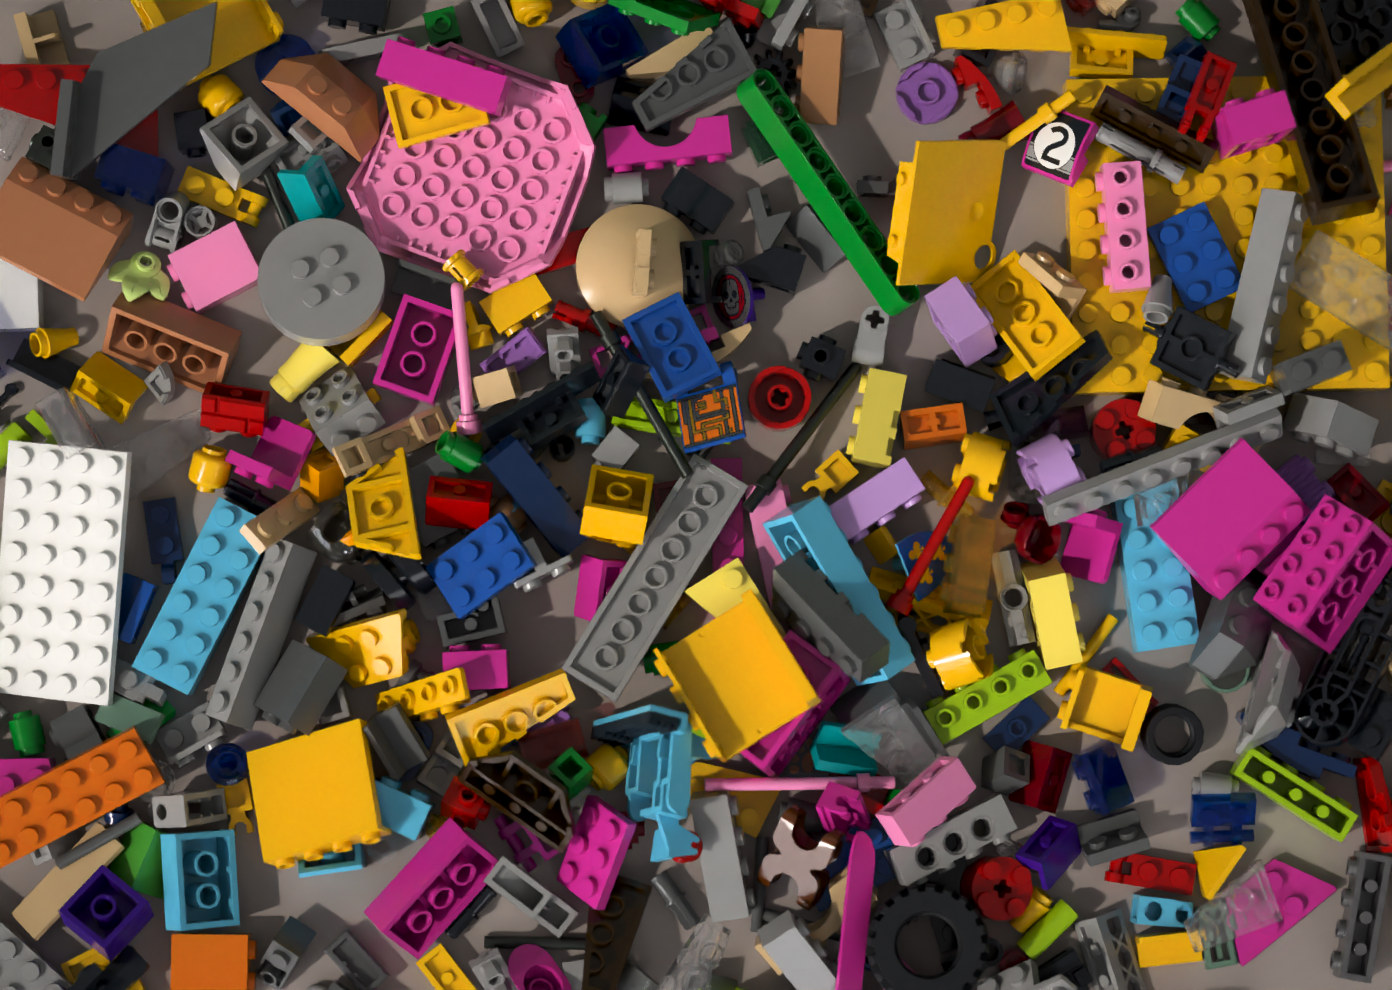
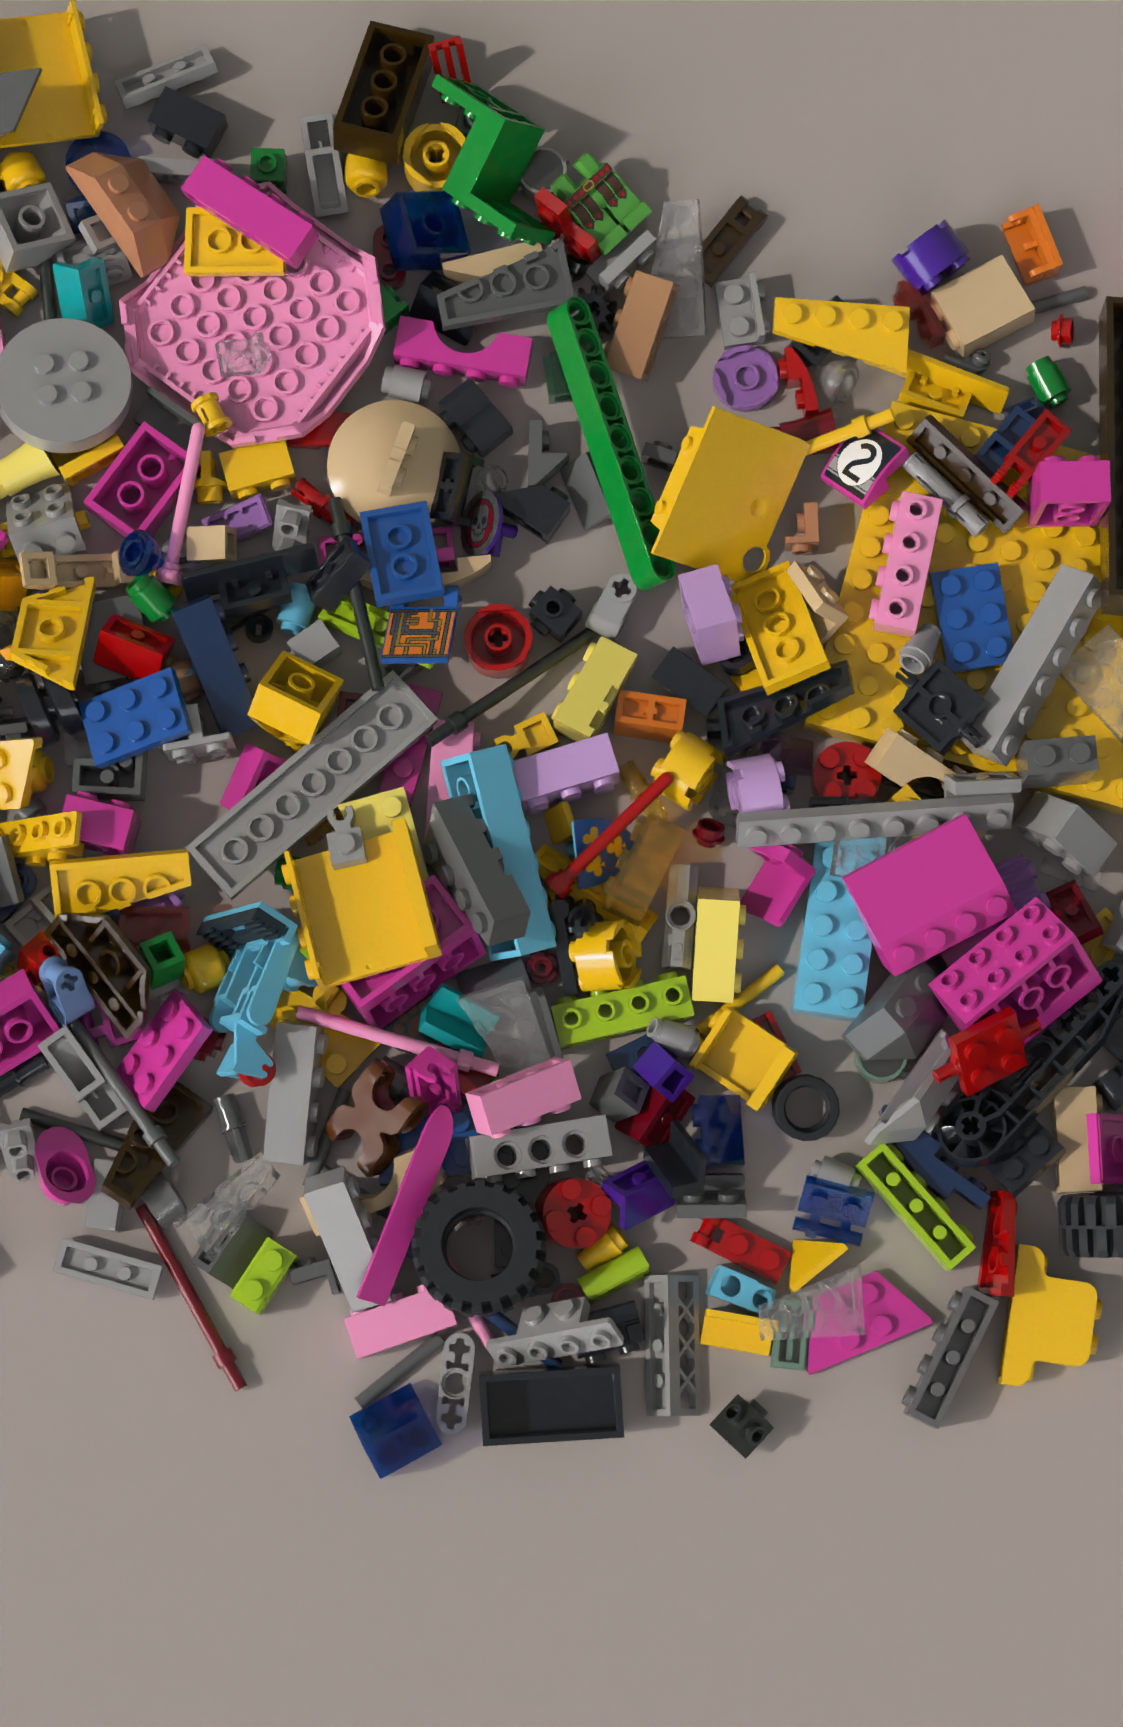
camera: 20 degrees right, 5 degrees down
(439, 416) = (140, 554): none -> clear blue brick
(475, 208) = (243, 356): none -> clear bracket
(493, 825) = (65, 990): none -> medium blue piece
(611, 930) = (153, 1134): none -> dark grey bar
(704, 624) = (347, 842): none -> light grey plate
(729, 767) = (330, 1000): none -> yellow piece
(910, 683) = (547, 975): none -> dark red plate
(929, 627) = (581, 917): none -> black axle
(1023, 212) = (808, 524): none -> nougat bracket
(1037, 539) = (724, 863): dark red hair -> none
(1040, 741) = (663, 1071): none -> dark purple brick
(1041, 707) = (674, 1036): none -> light grey cone
(1076, 818) = (677, 1163): none -> black panel
(1323, 644) = (987, 1051): none -> red plate

